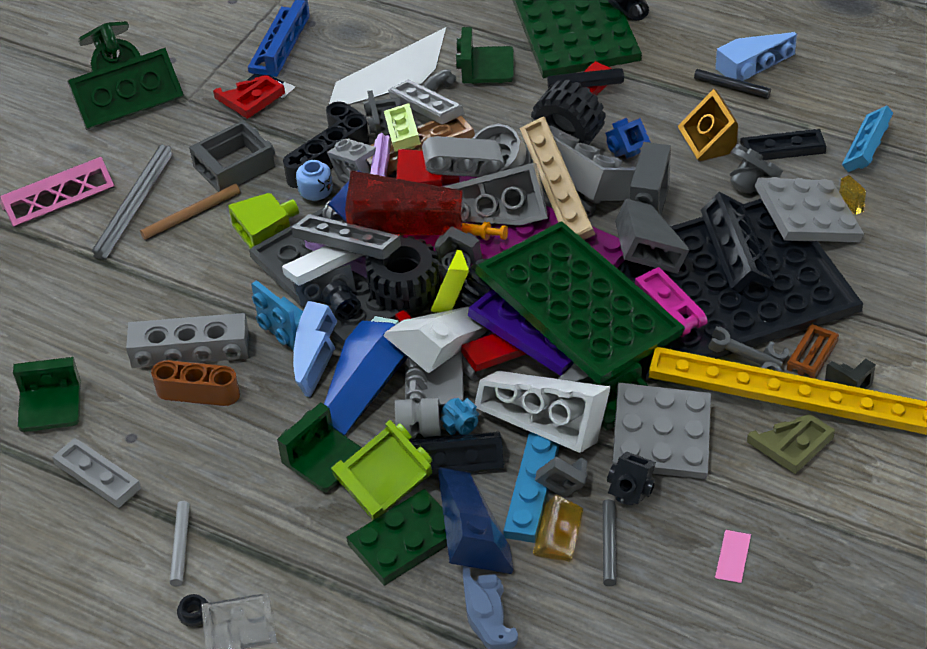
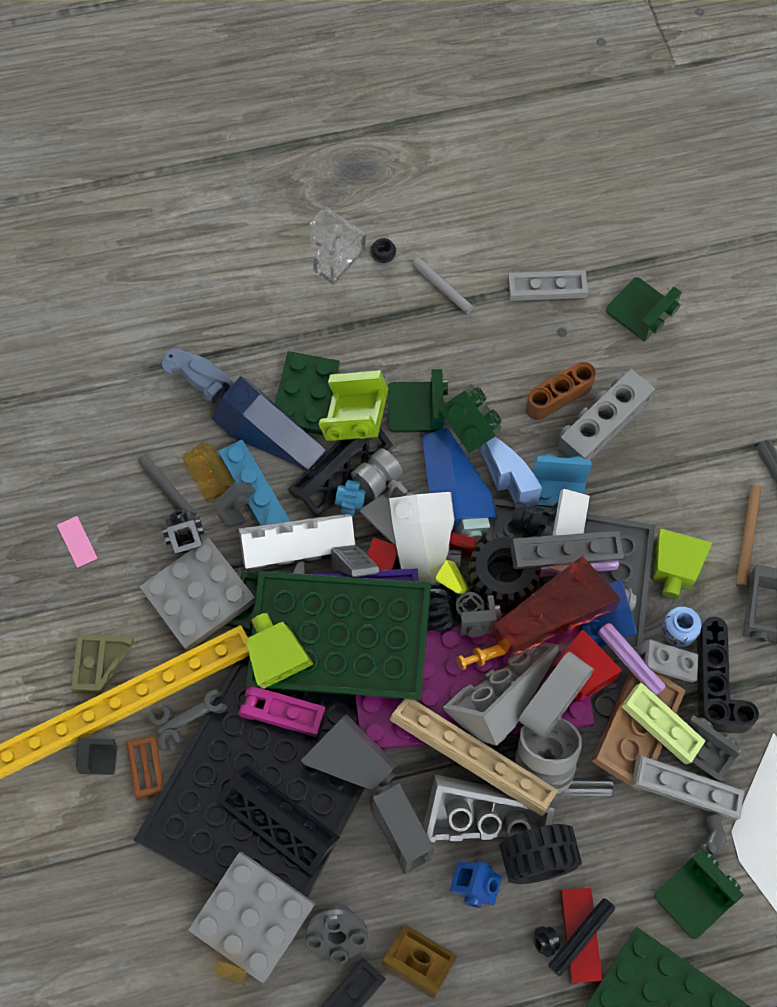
camera: 130 degrees right, 20 degrees up
(301, 381) = (471, 418): none -> dark green bracket
(504, 350) = (352, 561): none -> dark grey slope
(610, 94) = (546, 941): none -> black plate
(644, 310) = (275, 652): none -> lime torso

